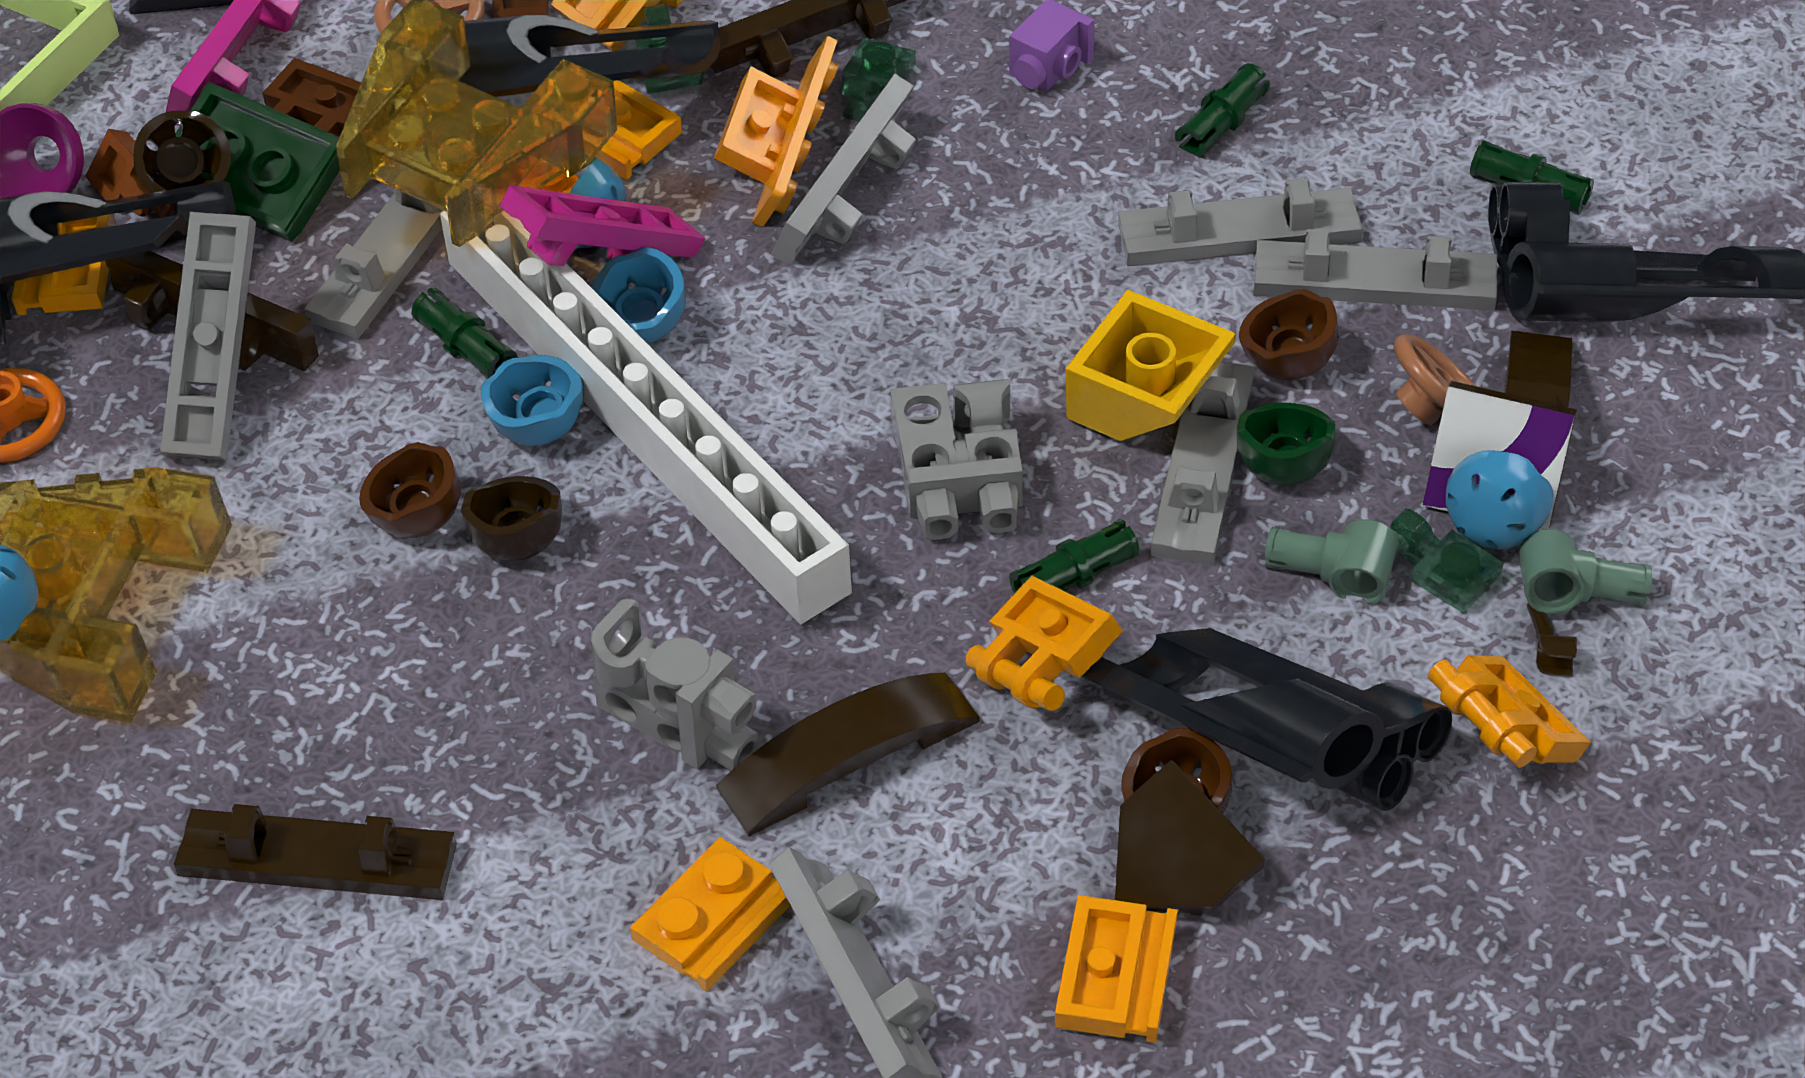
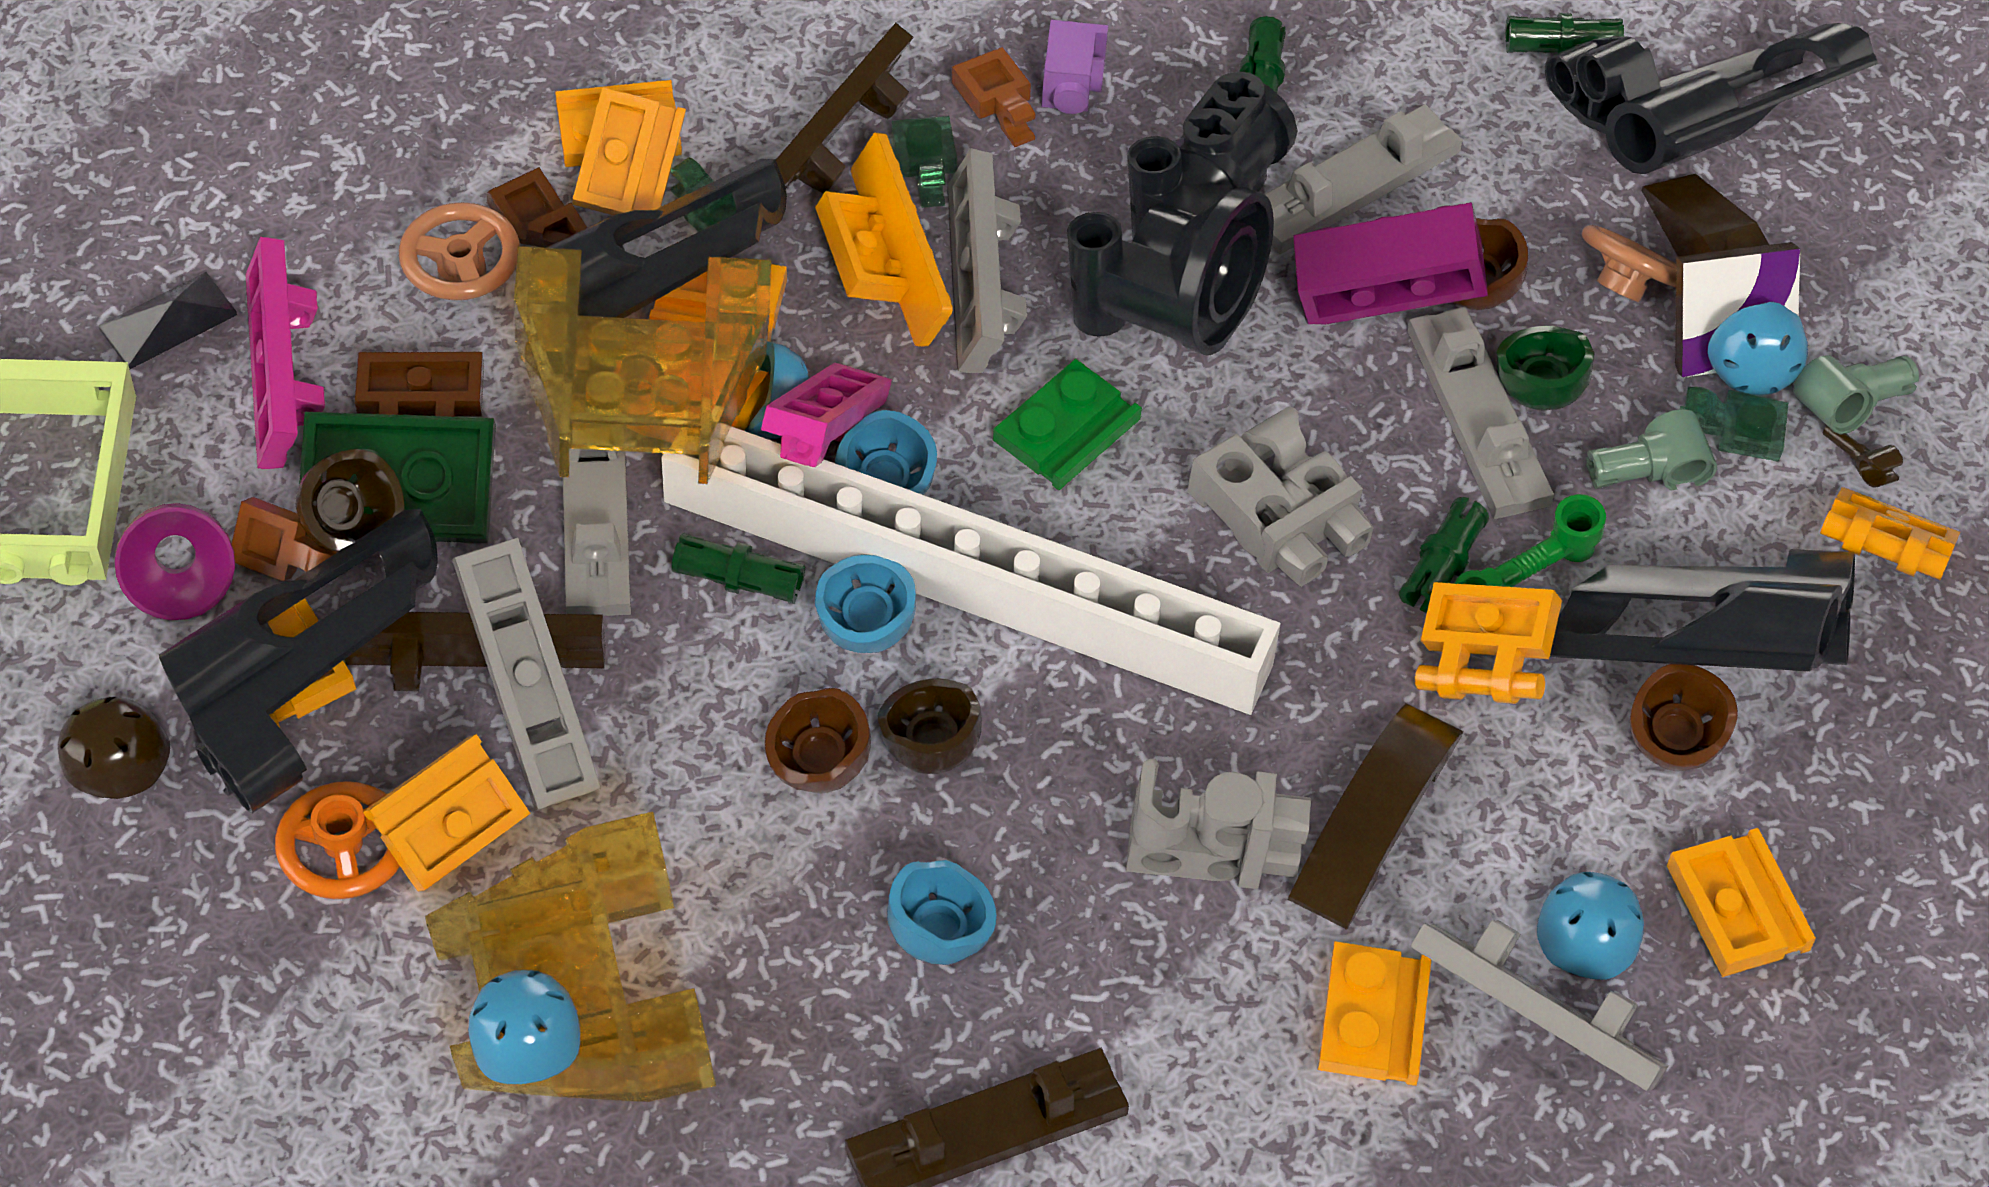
camera: 35 degrees left, 5 degrees up
(83, 422) = (446, 813): none -> light orange plate
(403, 680) = (938, 928): none -> dark azure helmet
(827, 329) = (1066, 424): none -> green plate
(971, 41) = (997, 87): none -> dark orange plate
(971, 908) = (1598, 907): none -> dark azure helmet
(1039, 219) = (1194, 222): none -> black piece
(1142, 367) = (1397, 349): yellow slope -> none
(1179, 848) = (1725, 773): dark brown slope -> none
(1203, 590) = (1575, 533): none -> green brick
(1231, 292) = (1390, 264): none -> magenta brick
(1377, 272) = (1505, 174): light grey hinge -> none

